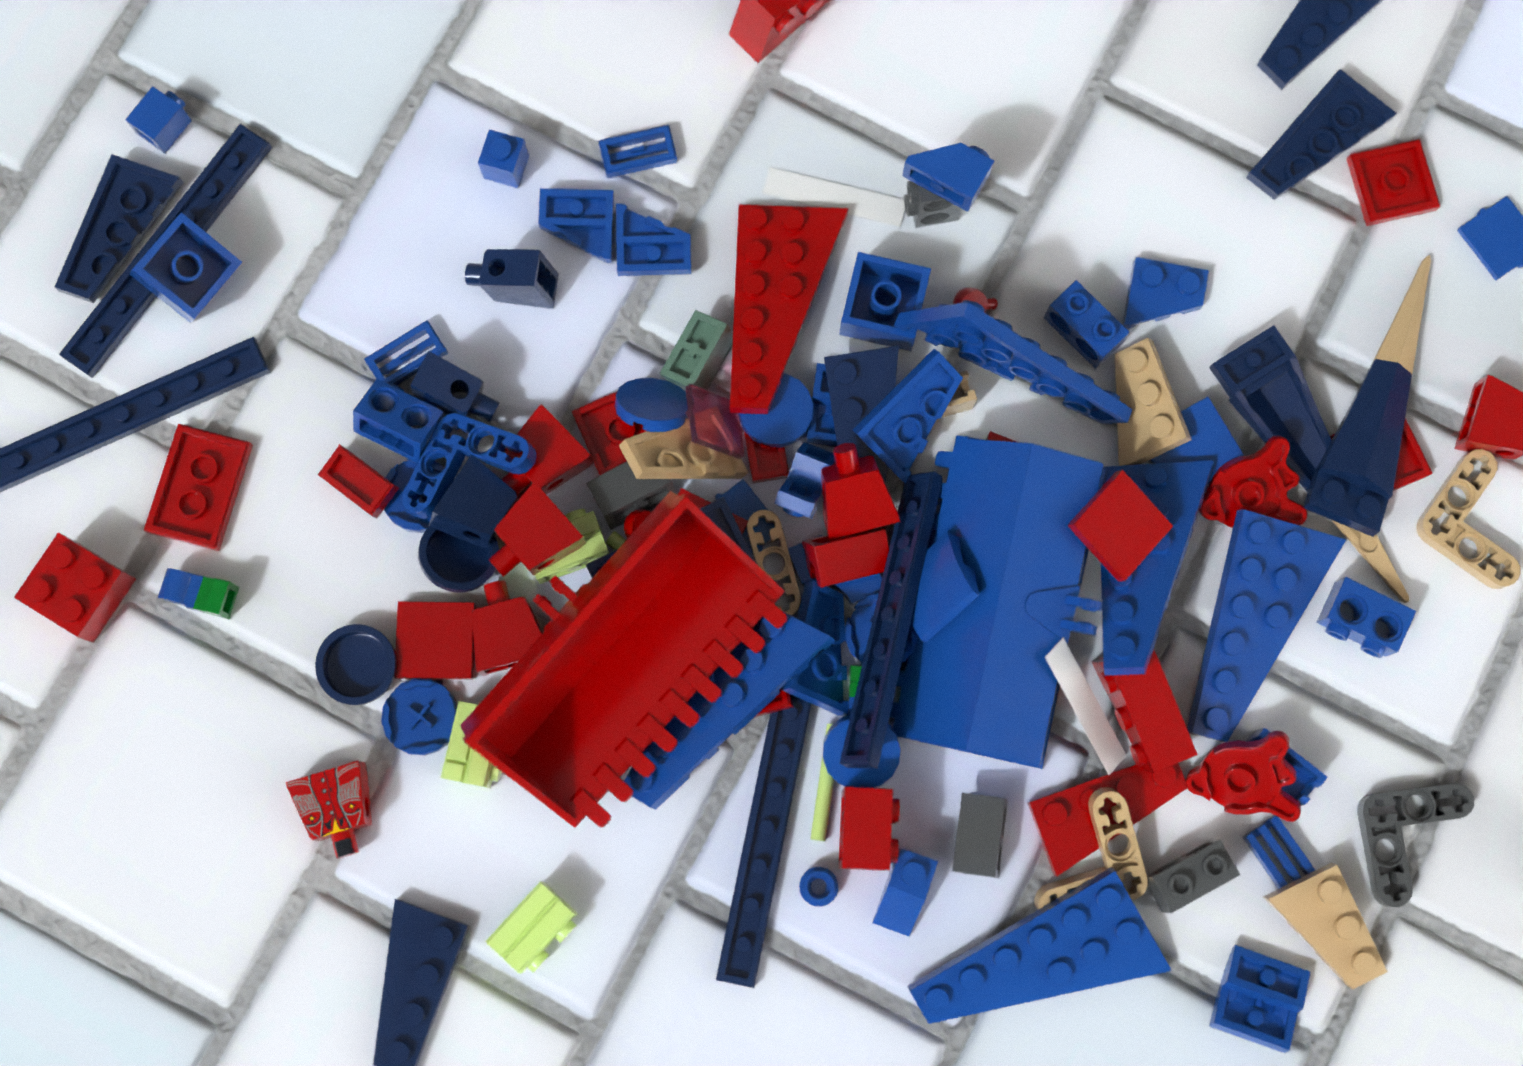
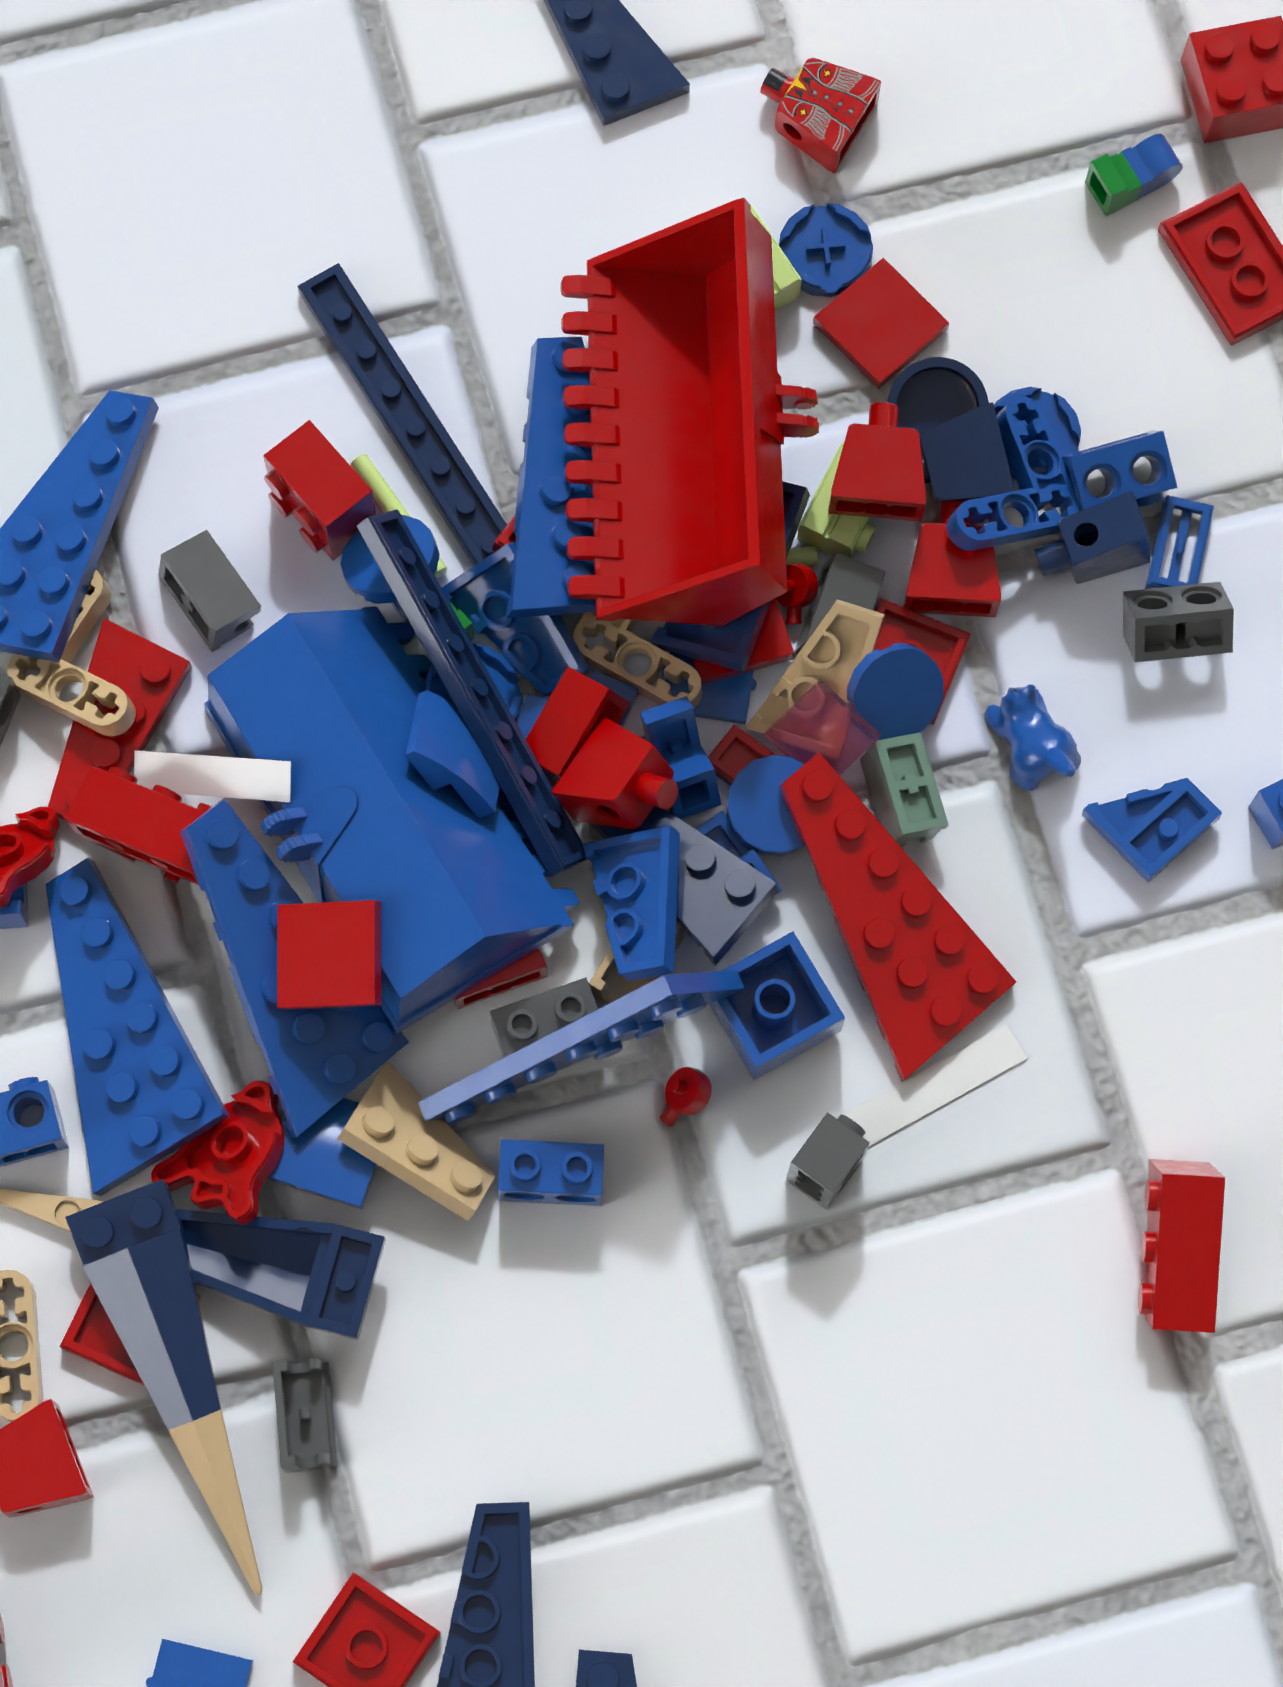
camera: 135 degrees right, 5 degrees down
(356, 664) = (928, 237): dark blue piece -> none
(358, 481) = (1097, 392): red tile -> none
(455, 307) = (1178, 621): none -> dark grey brick
(502, 629) = (831, 368): red torso -> none
(515, 277) = (1150, 701): dark blue torso -> none
(532, 928) = (543, 162): yellowish green brick -> none
(599, 313) = (1035, 740): none -> blue animal
(636, 152) = (1149, 983): blue tile -> none
(649, 246) = (1061, 859): blue wing -> none
(831, 886) = (323, 407): blue plate -> none
(905, 892) = (237, 485): blue slope -> none
(951, 172) = (820, 1158): blue slope -> none
(1016, 405) = (540, 1015): none -> dark grey brick
(1162, 290) = (506, 1292): blue wing -> none
(1329, 320) = (304, 1415): none -> dark grey hinge

